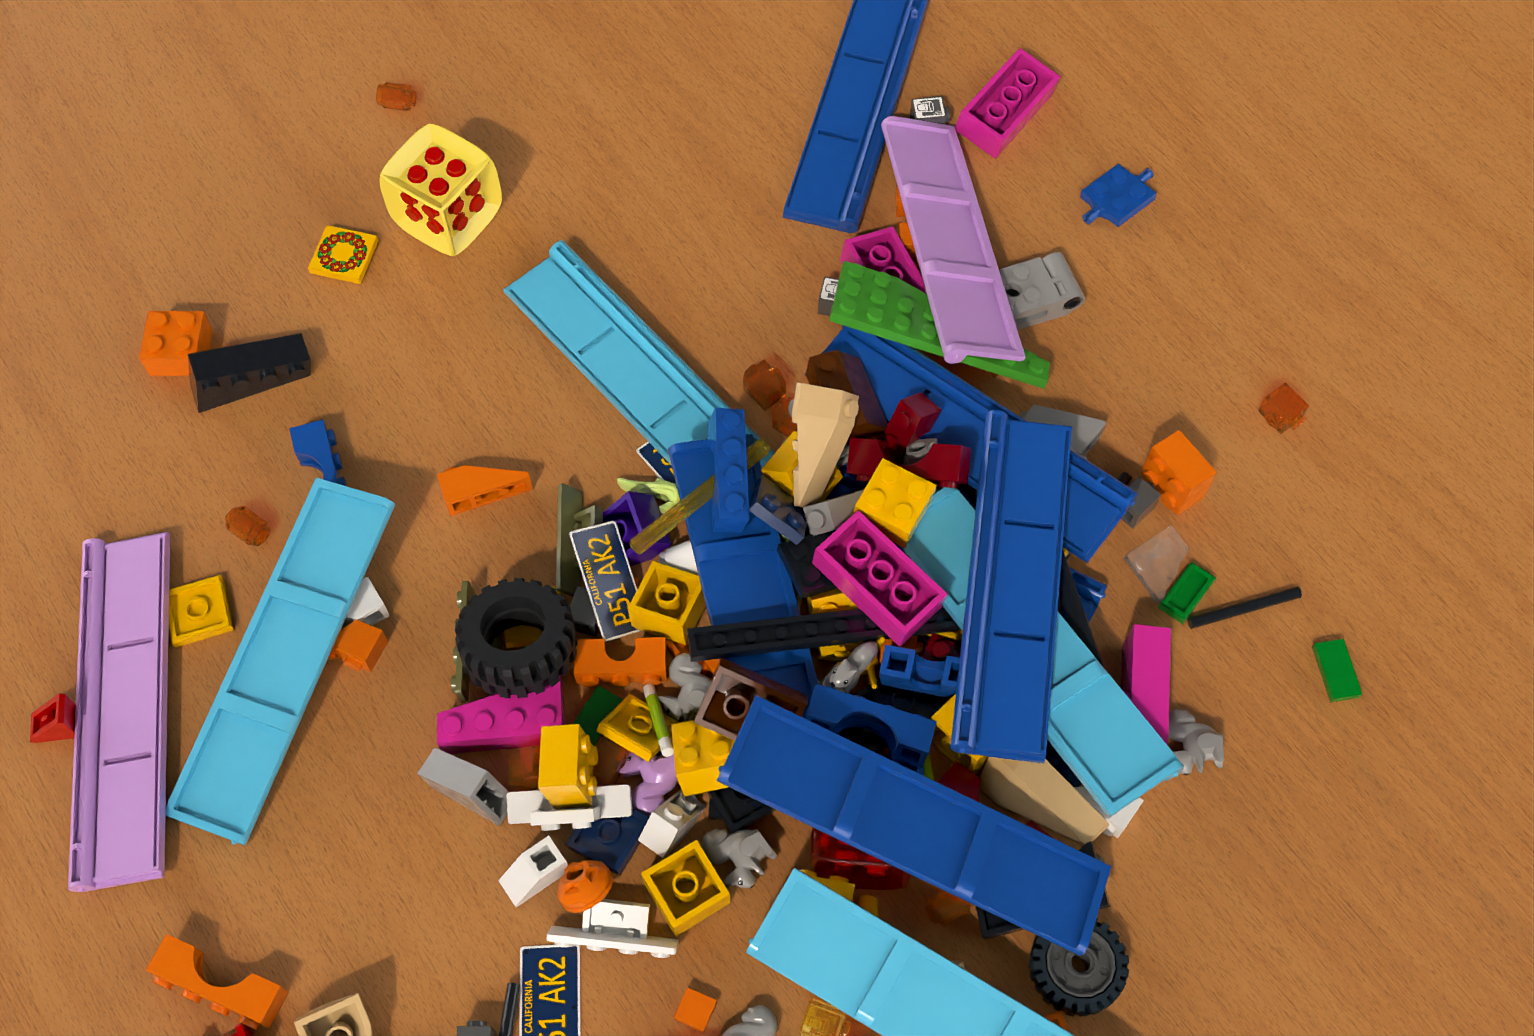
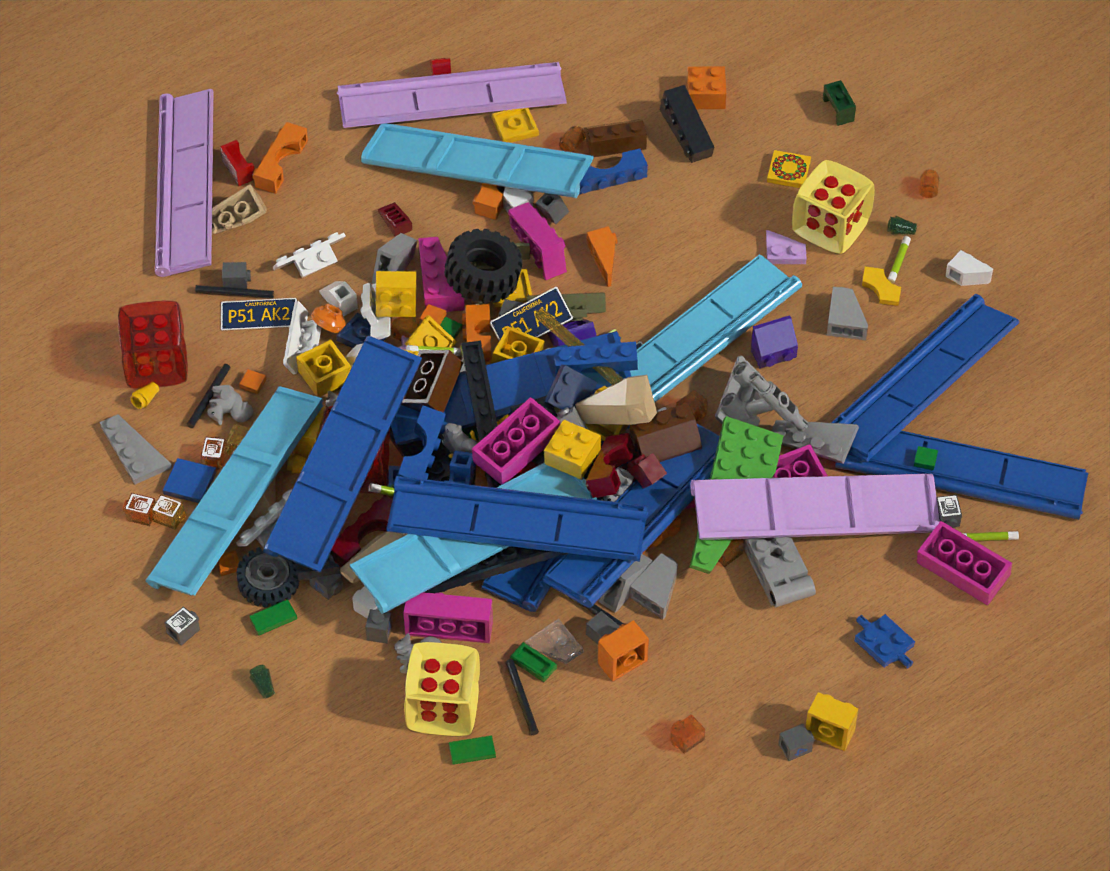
camera: 90 degrees right, 10 degrees down
(233, 179) = (841, 102): none -> dark green panel
(248, 466) = (616, 137): none -> reddish brown slope
(377, 774) = (403, 227): none -> dark red slope
(389, 552) = (552, 207): none -> dark grey brick
(441, 572) = (543, 240): none -> dark pink wedge
(444, 920) = (314, 258): none -> white bracket
(466, 127) = (901, 226): none -> clear green cone
(487, 268) = (784, 250): none -> lavender wing
(517, 141) = (899, 259): none -> lime bar
(545, 67) = (968, 271): none -> white slope
(570, 158) = (886, 291): none -> yellow tile
(588, 721) = (435, 313): none -> orange tile
(610, 201) = (846, 316): none -> light grey slope
(664, 280) = (774, 342): none -> slope
(726, 129) = (924, 375): none -> blue piece
(764, 317) = (752, 394): none -> light grey plate
(828, 226) = (827, 439): none -> light grey wing
(849, 130) = (925, 458): none -> green tile
(956, 83) = (991, 536): none -> lime bar
(985, 959) = (264, 524): none -> white bracket
(1147, 956) = (273, 617): none -> green tile
(1161, 799) = (378, 626): none -> dark grey brick
(1254, 246) = (832, 721): none -> yellow brick
(1265, 965) = (262, 680): none -> clear green cone
(1279, 291) = (796, 742): none -> dark grey brick
(1281, 694) = (442, 689): none -> light yellow piece

